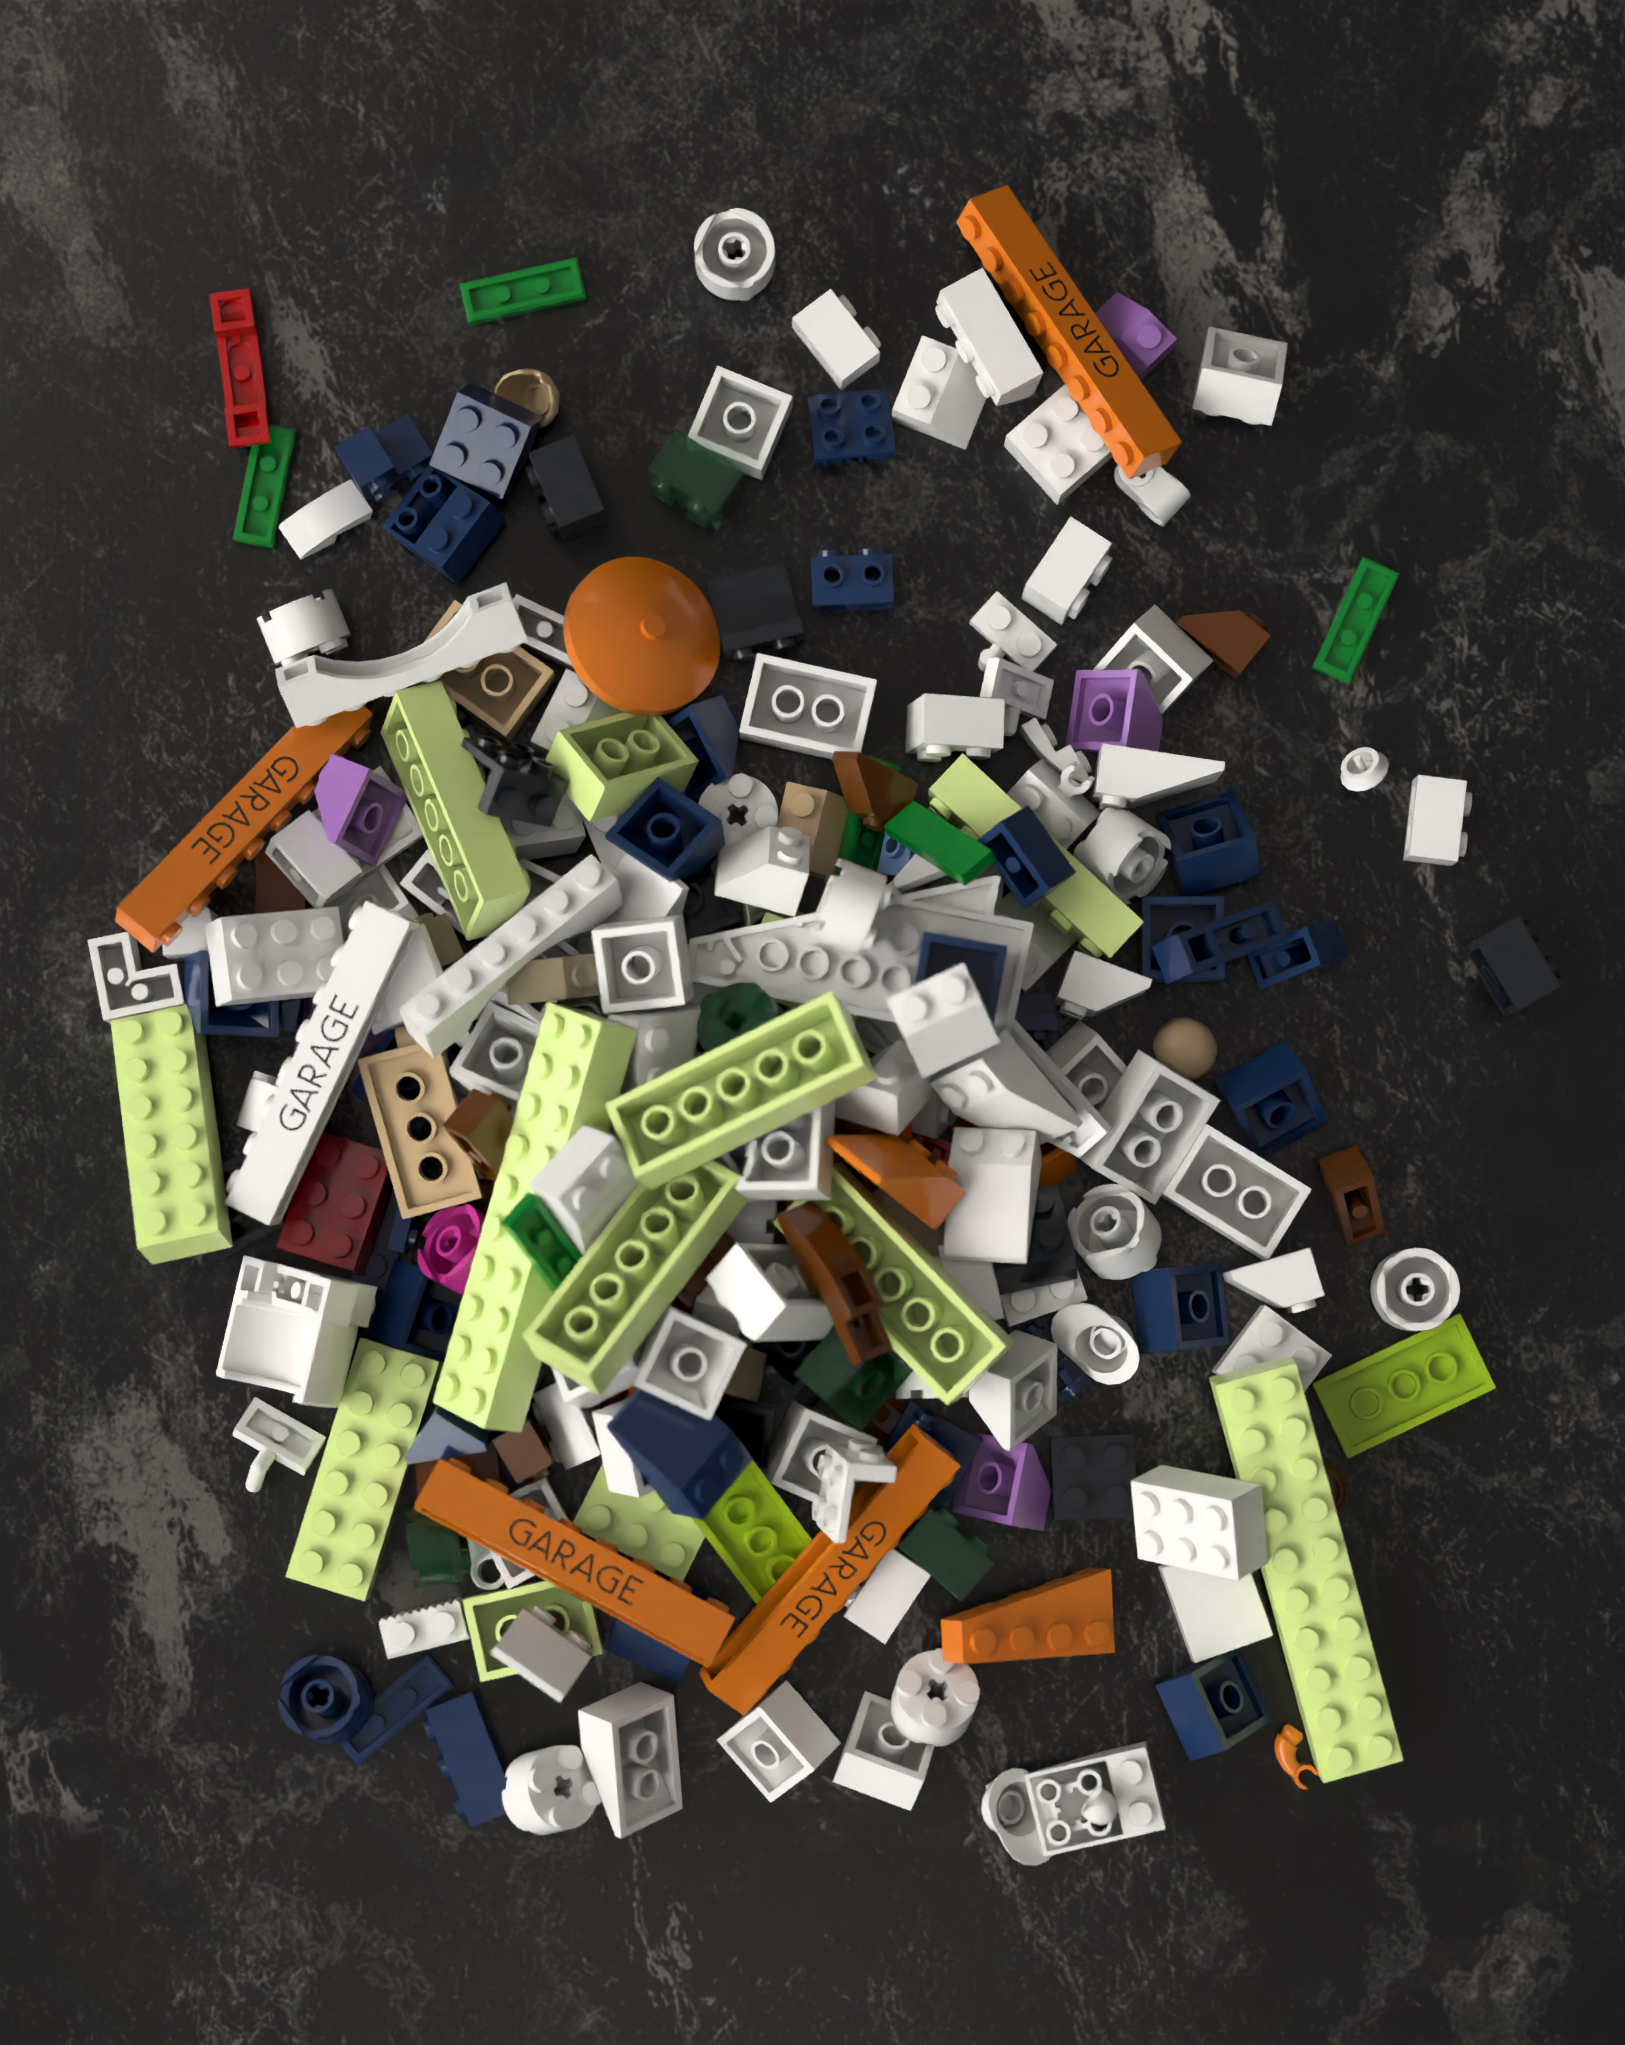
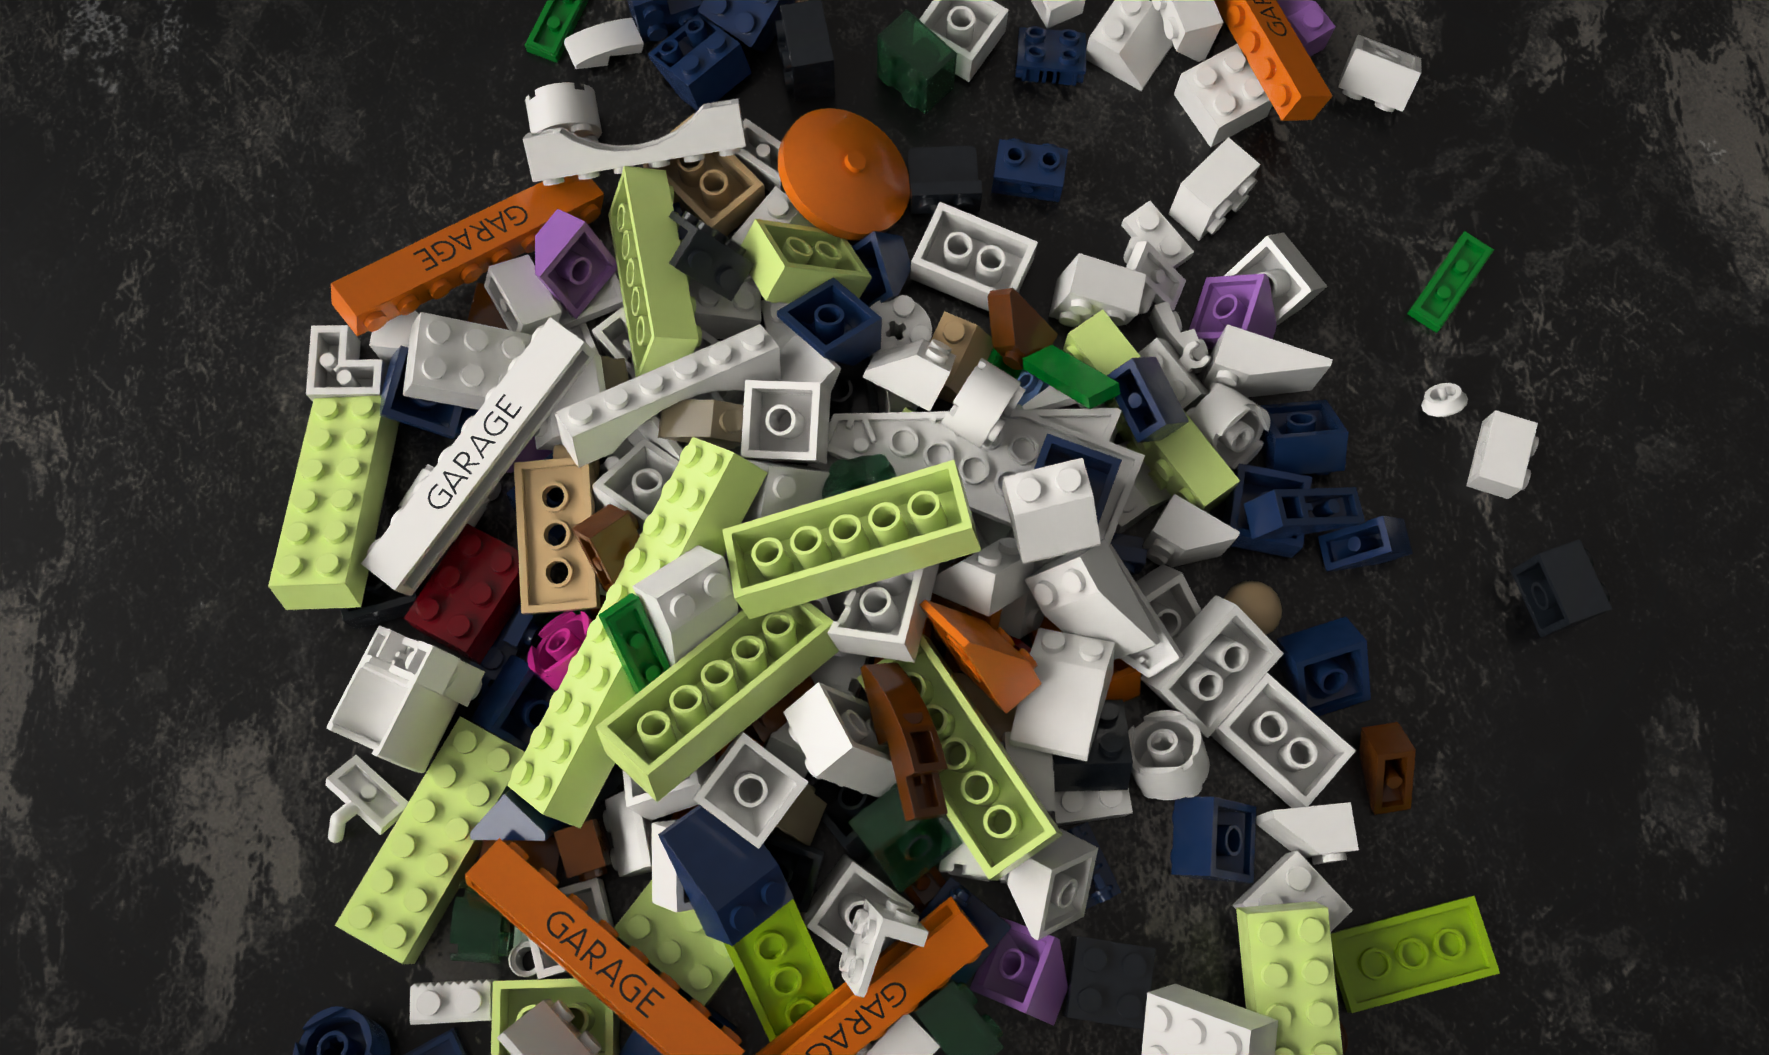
camera: 10 degrees right, 10 degrees down
(1096, 1342) = (1133, 855): white piece -> none
(1155, 493) = (1293, 144): white piece -> none
(1227, 637) = (1343, 270): reddish brown slope -> none
(1431, 1307) = (1450, 847): white brick -> none

